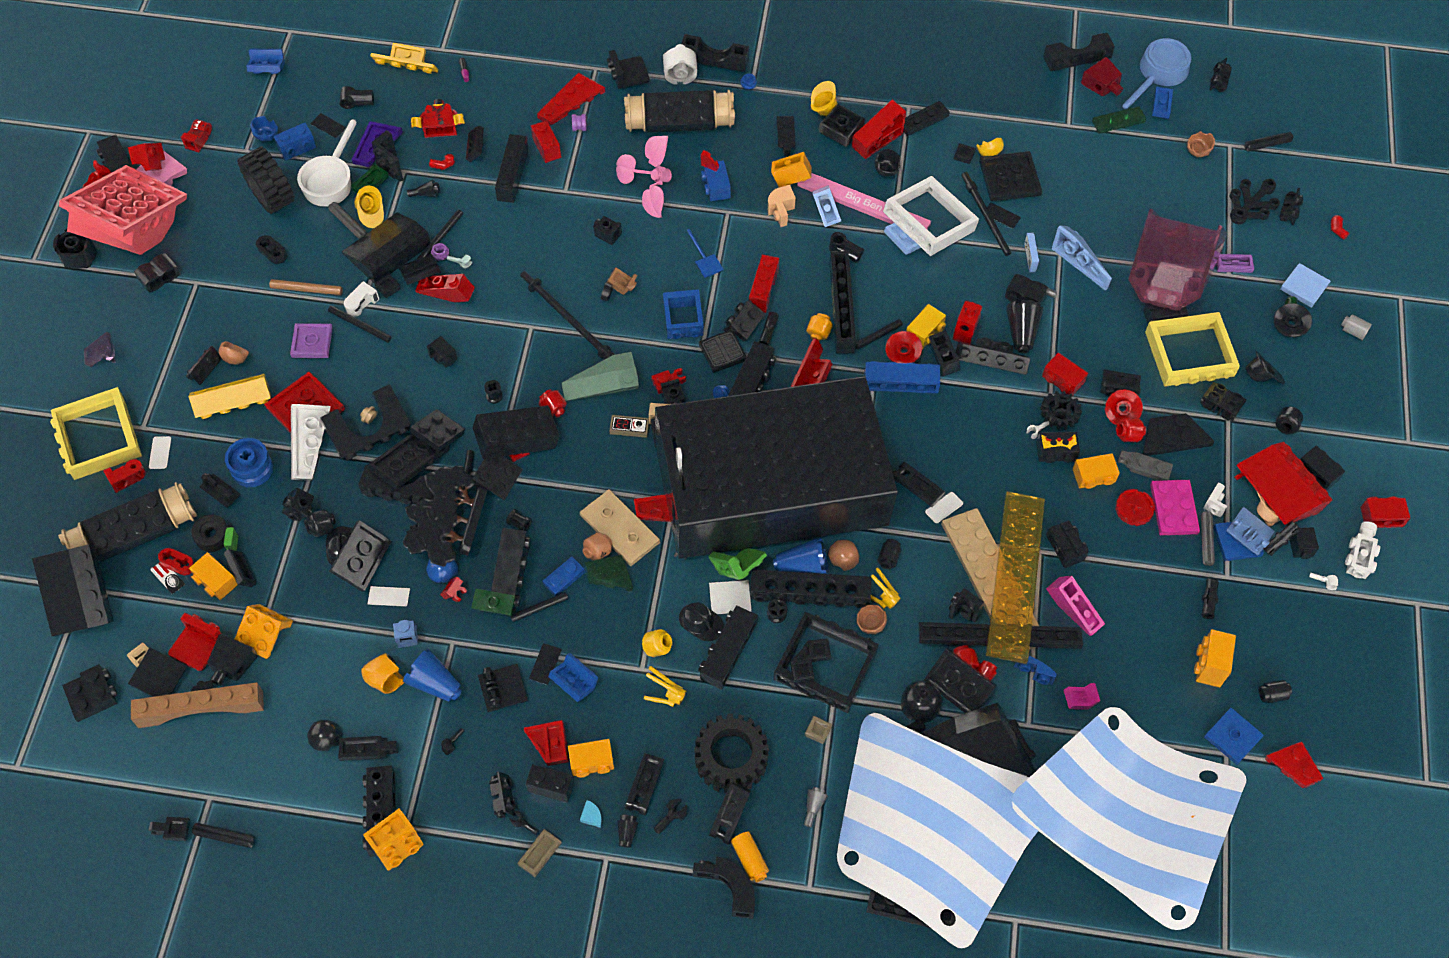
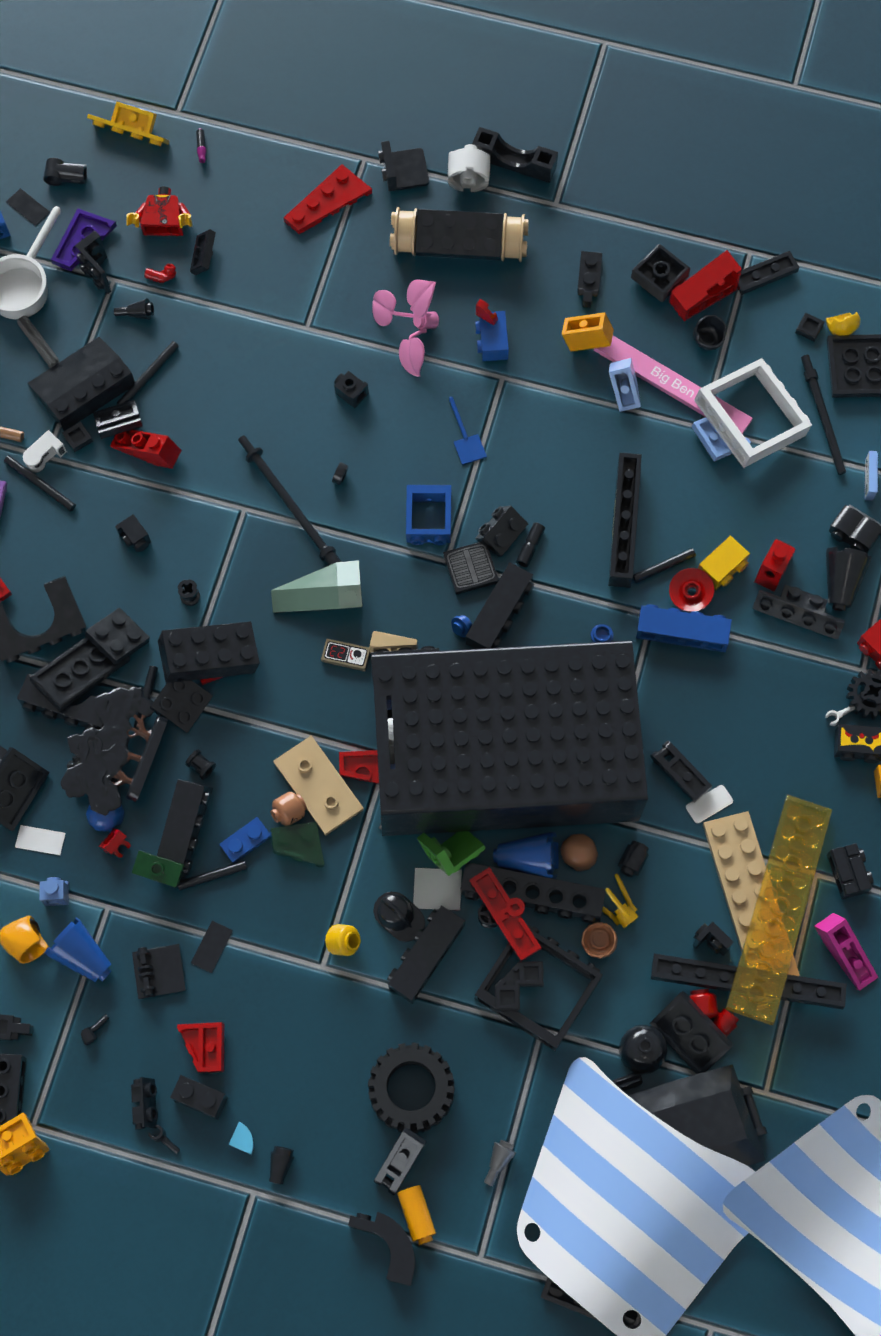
camera: 10 degrees right, 10 degrees up
(368, 414) = (38, 606): tan plate -> none
(369, 206) = (66, 328): yellow piece -> none
(373, 177) = (70, 291): dark green plate -> none
(437, 248) = (145, 391): medium lavender plate -> none
(464, 262) = (173, 413): light aqua hand -> none
(511, 168) = (244, 292): black brick -> none
(539, 853) = (178, 1177): dark tan tile -> none
(546, 141) = (290, 259): red brick -> none
(554, 400) = (259, 615): red head -> none
(574, 678) = (241, 971): blue bracket -> none
(579, 122) = (334, 235): medium lavender wheel -> none
(591, 758) = (249, 1072): light orange brick -> none
(621, 281) = (360, 461): medium nougat bracket -> none
(644, 783) = (307, 1110): black plate -> none
(665, 376) = (396, 600): red plate -> none
(671, 815) = (333, 1152): black bar -> none
(672, 392) = (401, 613): black brick -> none
(675, 692) = (356, 1003): yellow plant -> none
(748, 81) = (552, 198): blue plate -> none
(763, 281) = (532, 481): red arch -> none
(780, 202) = (568, 371): light nougat brick -> none
(791, 603) = (506, 913): none -> red hinge
(812, 368) = (573, 611): red bracket -> none
(818, 730) = (517, 1068): dark tan tile -> none
(819, 327) = (592, 550): light orange head -> none
(824, 98) = (643, 233): yellow piece -> none
(855, 251) = (642, 444): black piece -> none
(944, 353) = (739, 603): black brick -> none
(1003, 216) = (844, 418): black sticker -> none
(1042, 673) = (791, 1031): blue slope -> none
(1082, 697) = (834, 1068): dark pink bracket -> none

